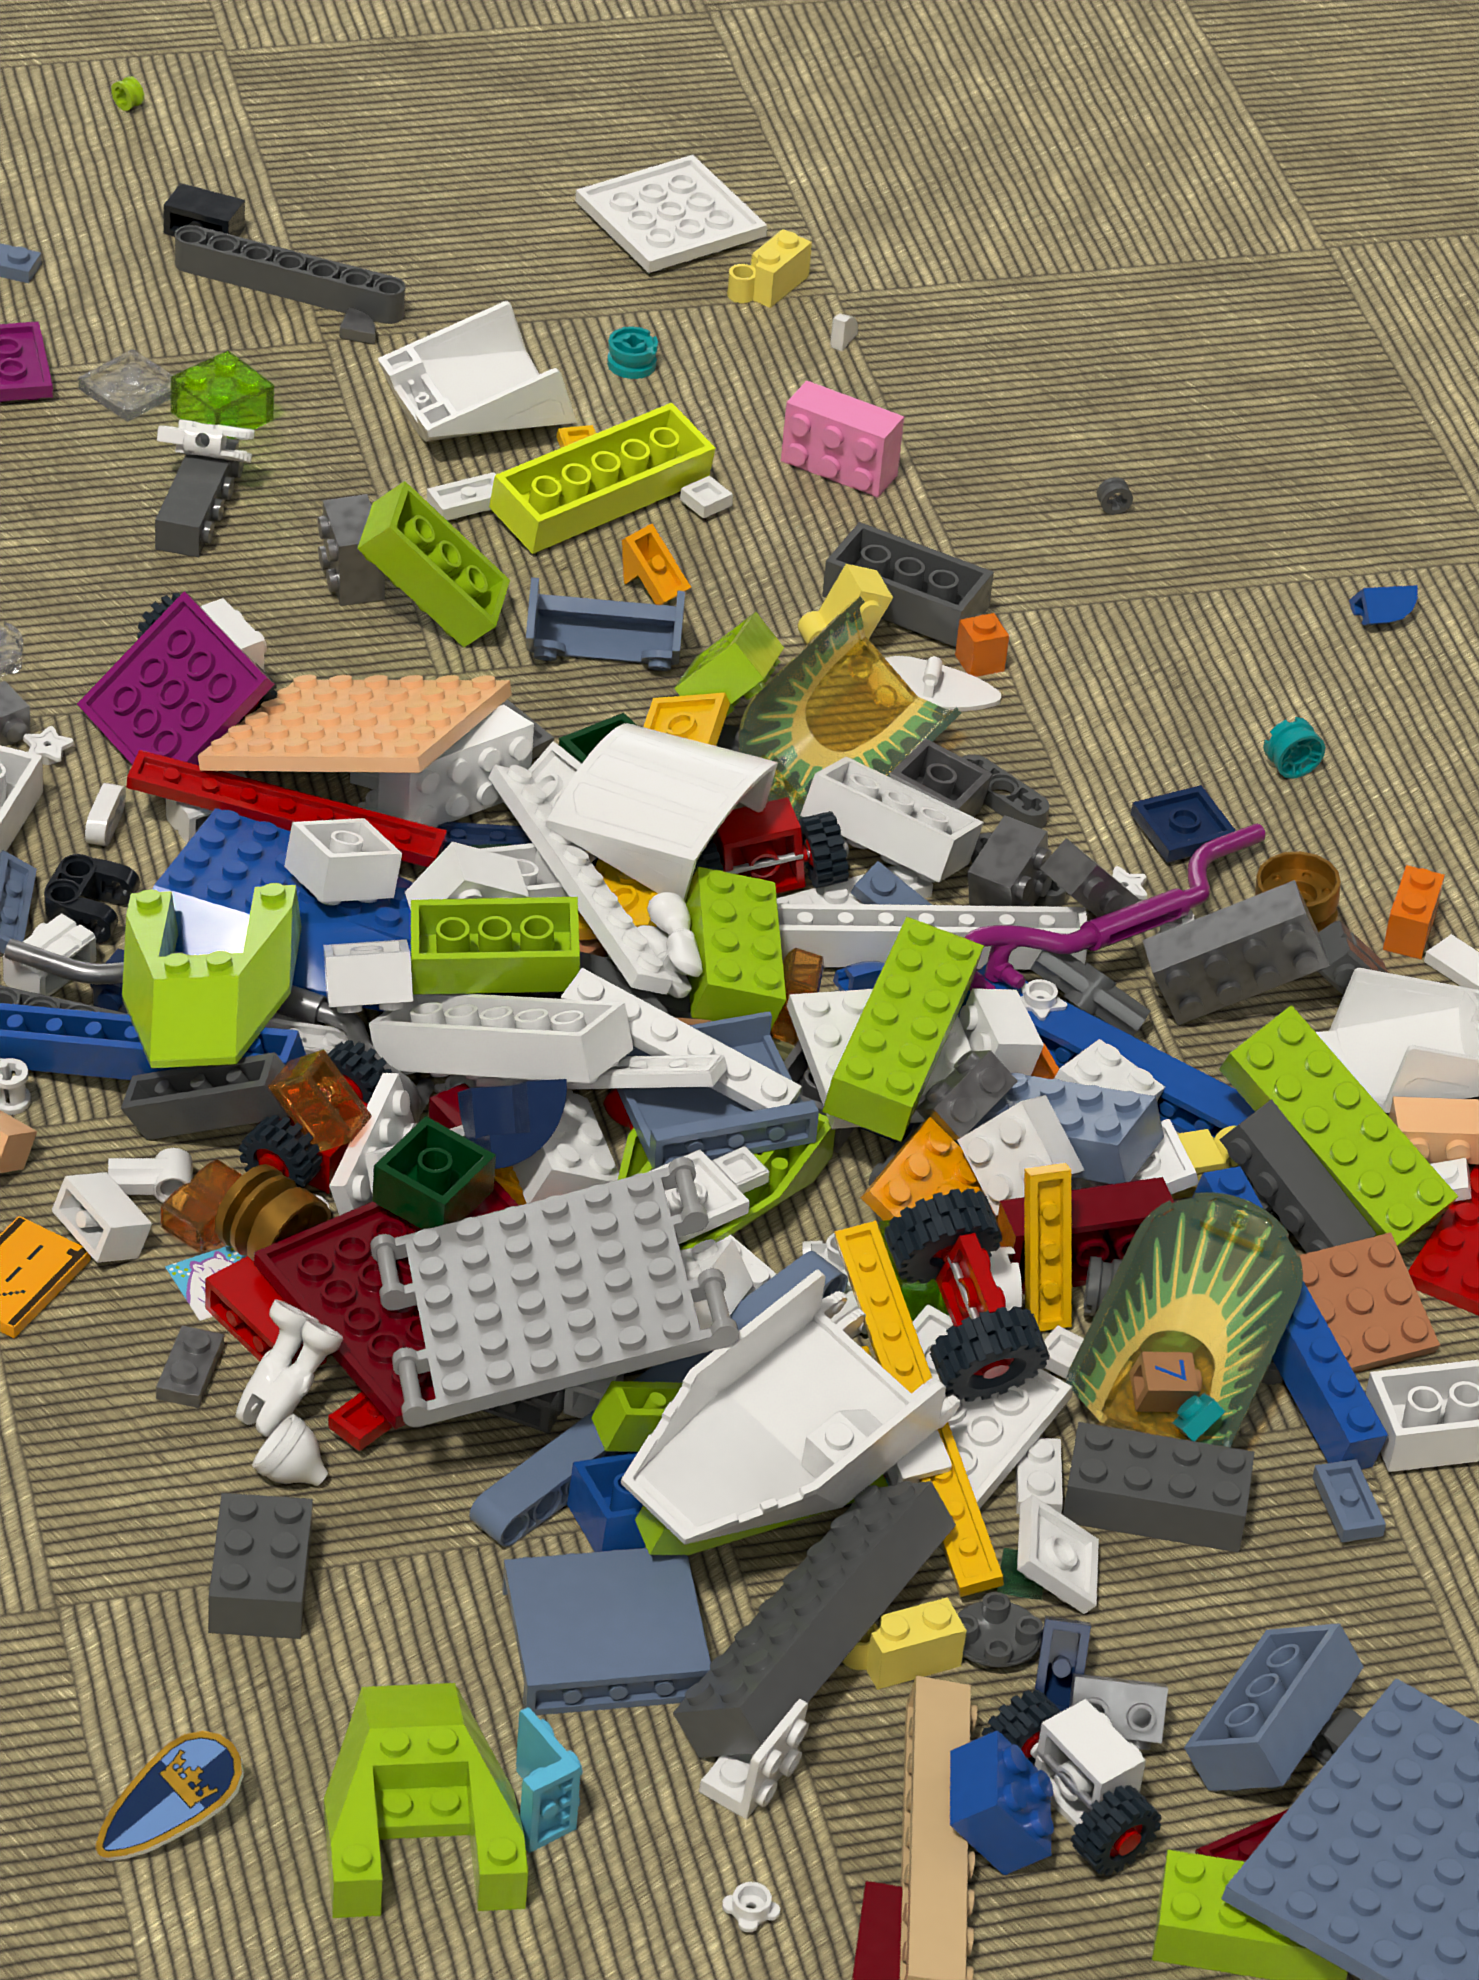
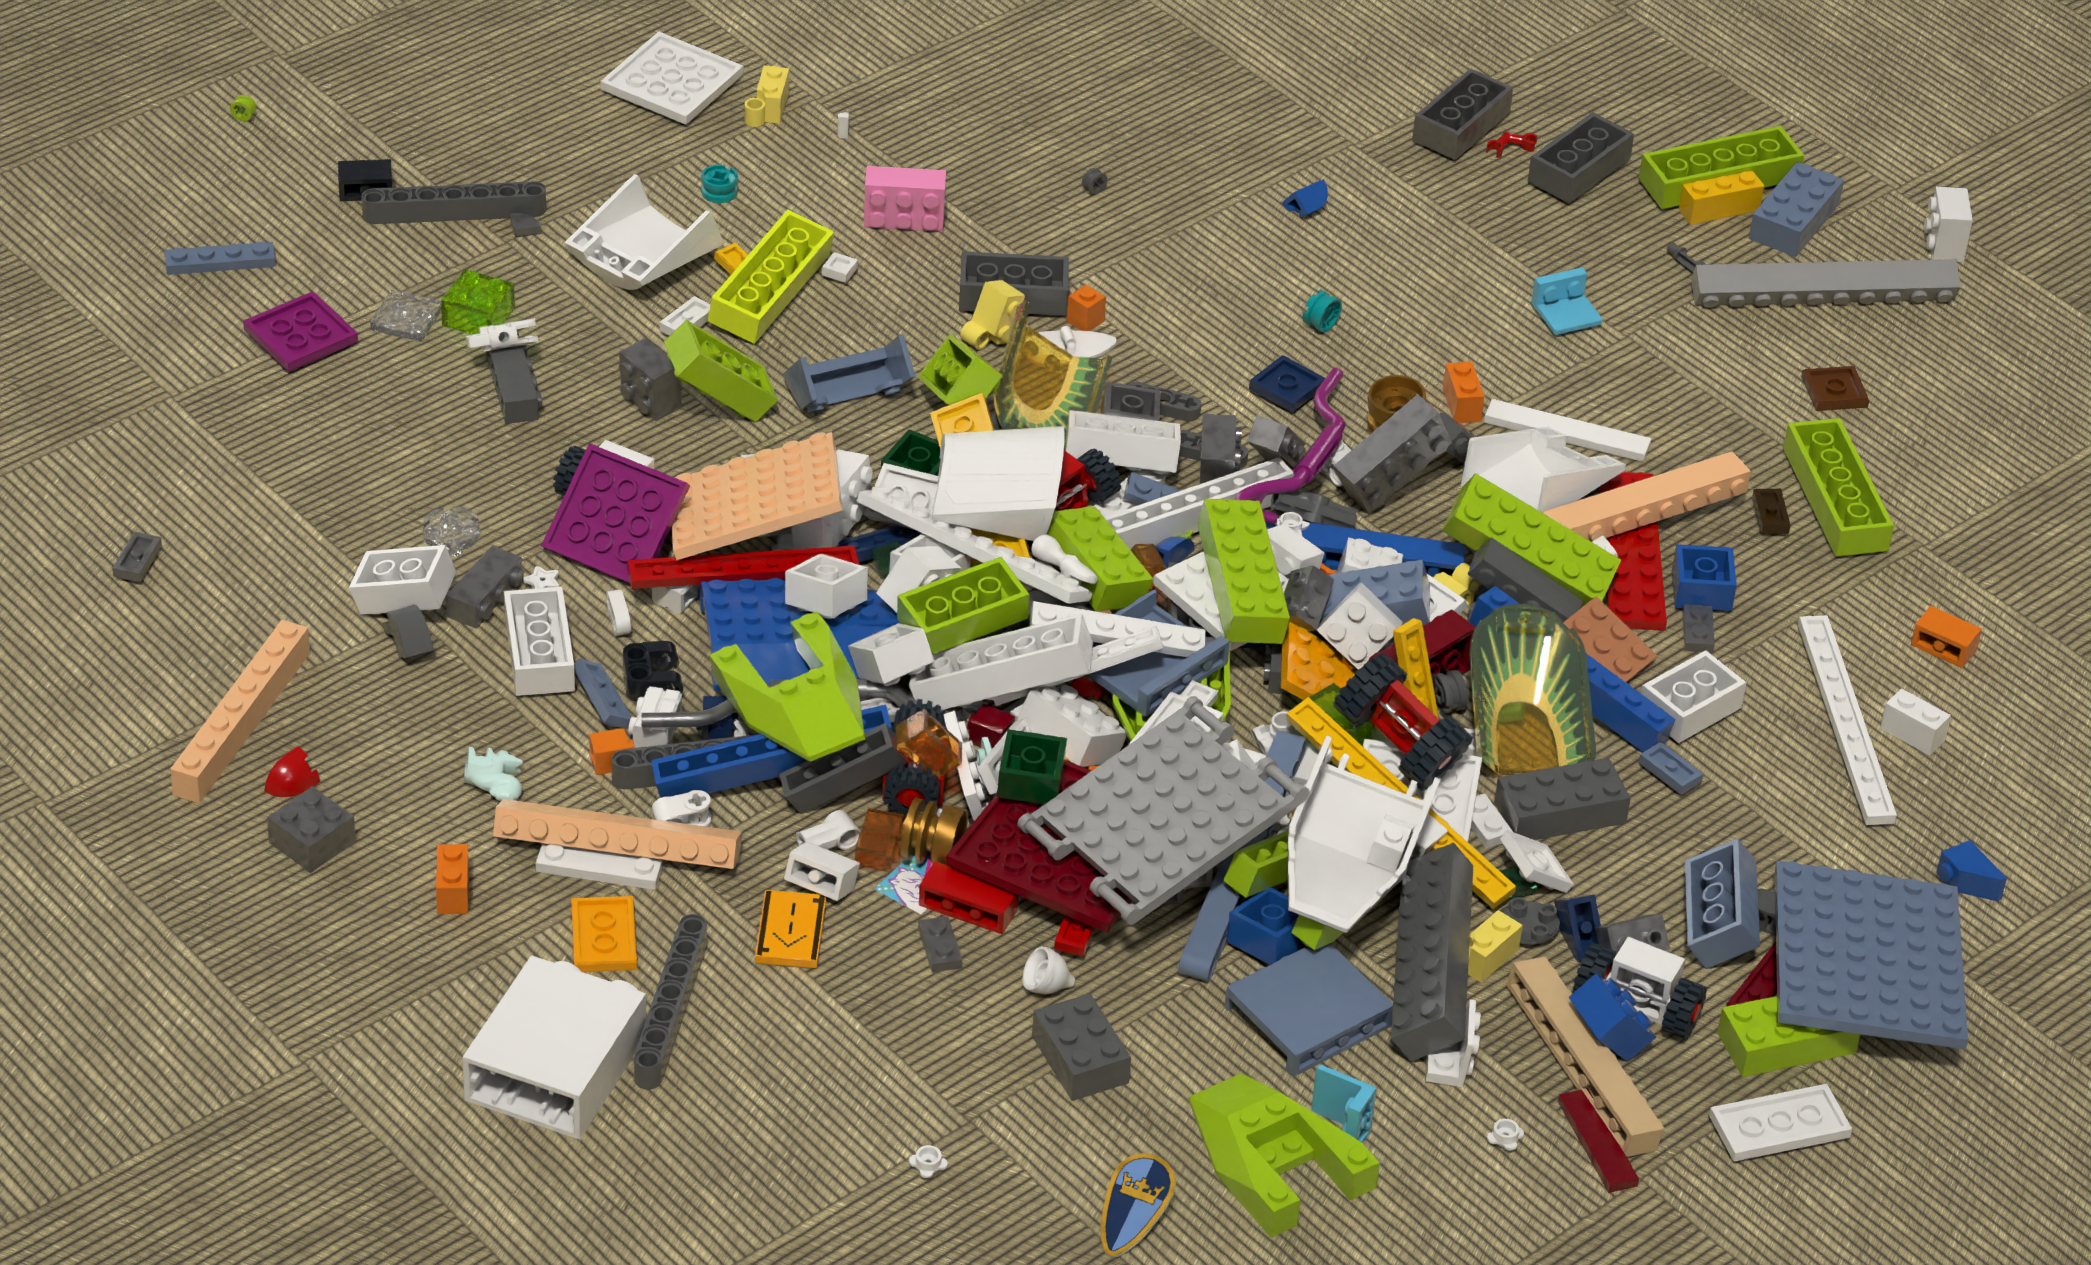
camera: 25 degrees left, 0 degrees up
(278, 1383) = (1010, 930): white piece -> none
(512, 1118) = (1049, 711): dark blue brick -> none
(652, 562) = (843, 322): light orange slope -> none
(1164, 1381) = (1529, 735): medium nougat brick -> none
(1197, 1416) = (1563, 748): teal plate -> none

